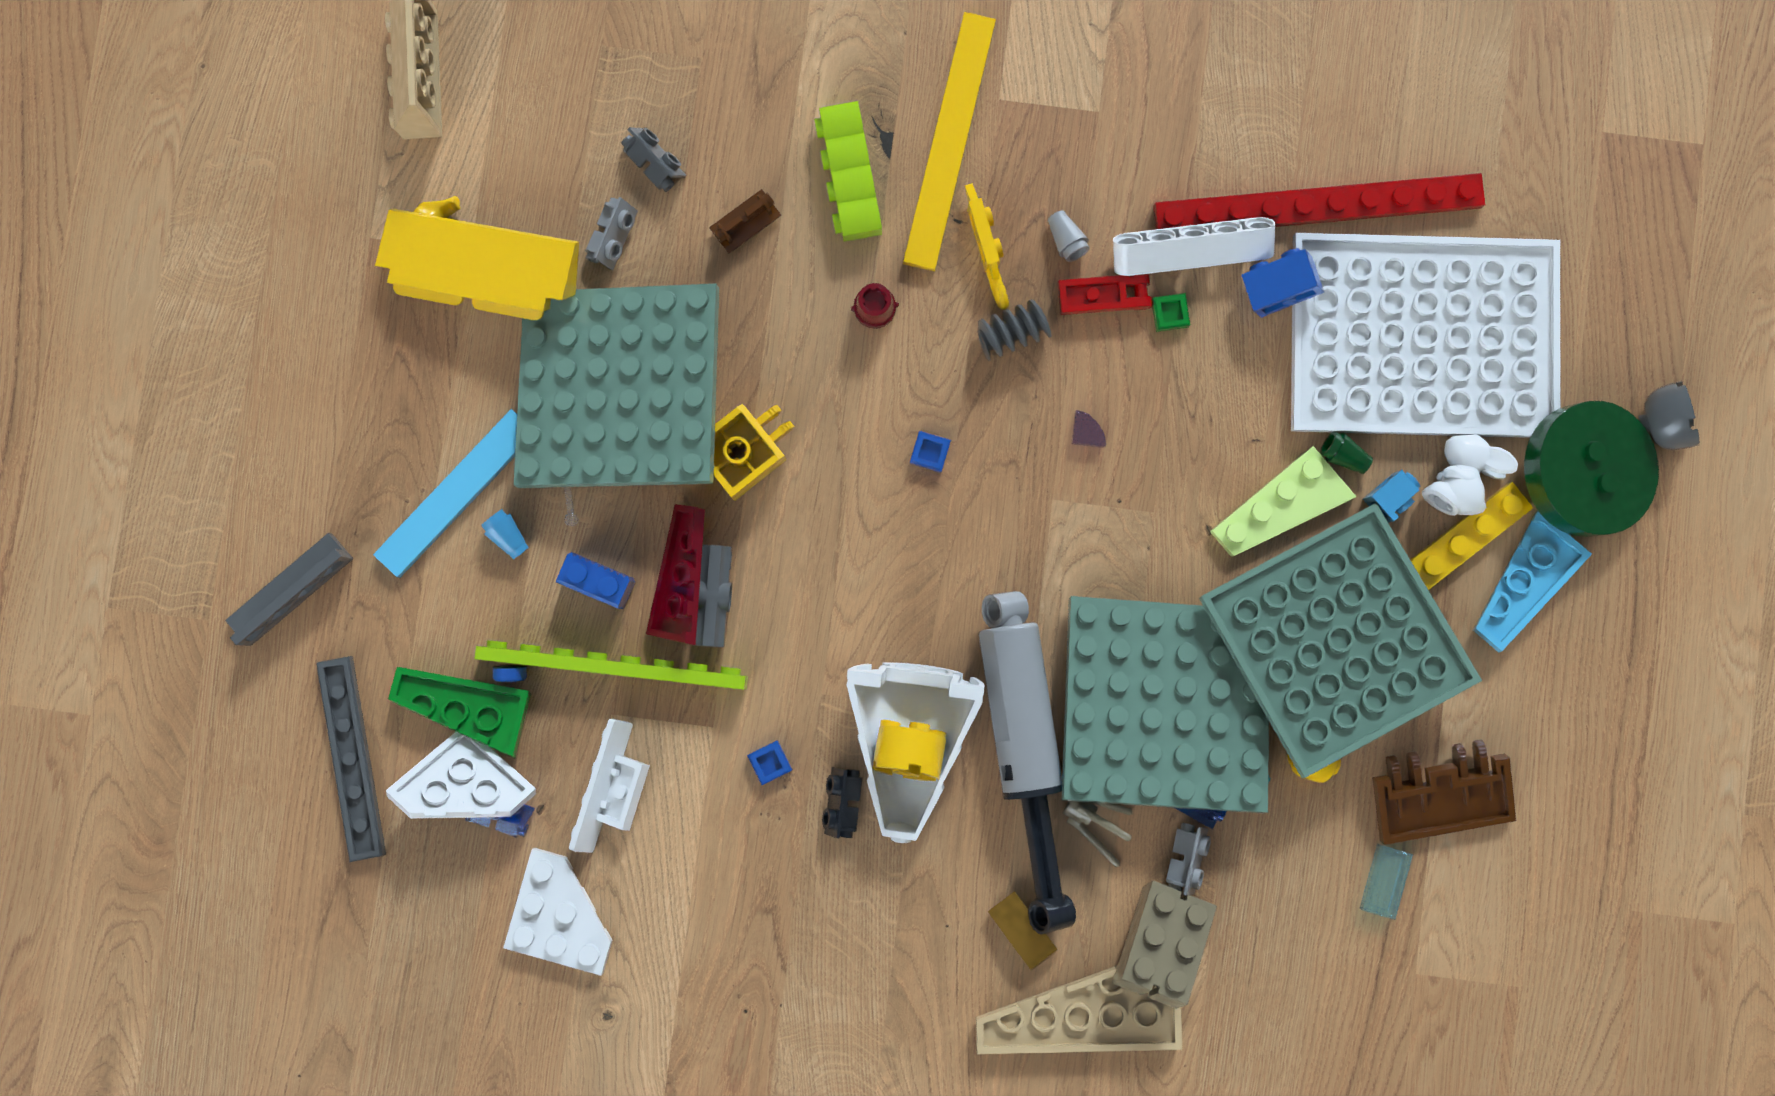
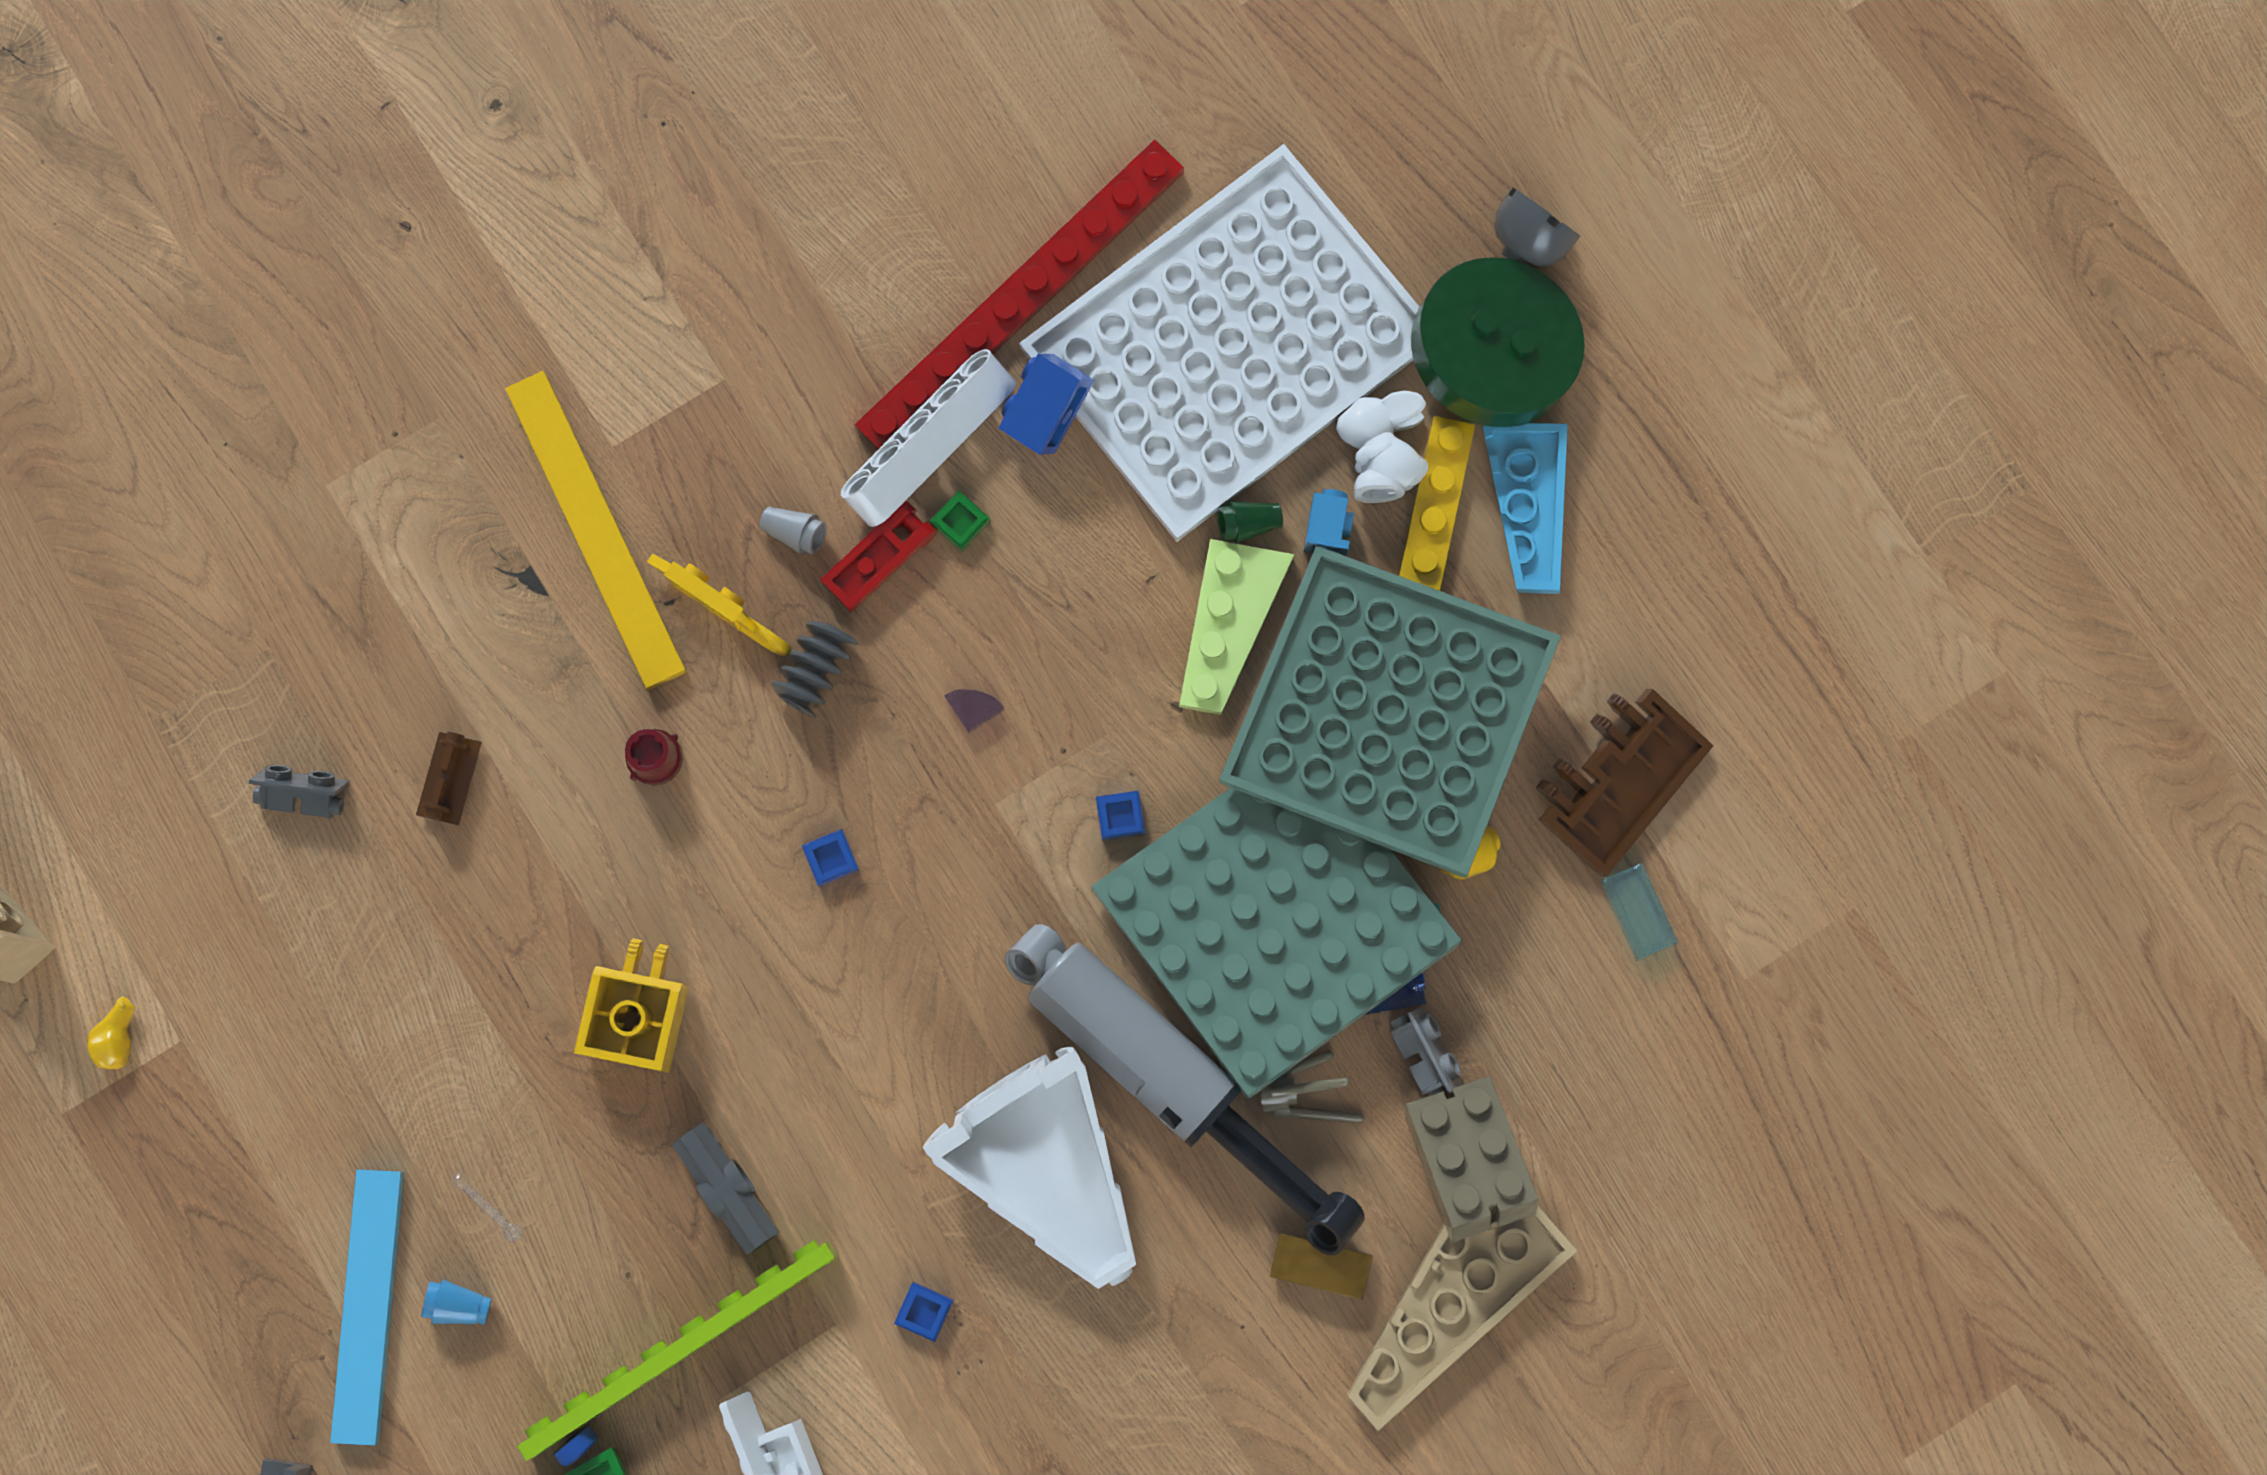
camera: 40 degrees left, 5 degrees down
(492, 265) = (208, 1041): yellow slope -> none
(595, 580) = (589, 1273): blue brick -> none
(618, 219) = (313, 883): light grey hinge -> none
(619, 389) = (450, 1056): sand green plate -> none
(678, 584) = (679, 1206): dark red wing -> none
(839, 818) = (1040, 1308): black hinge -> none
(850, 171) = (517, 641): lime brick -> none
(909, 751) = (1054, 1178): yellow brick -> none
(1121, 567) = (1120, 815): none -> blue tile

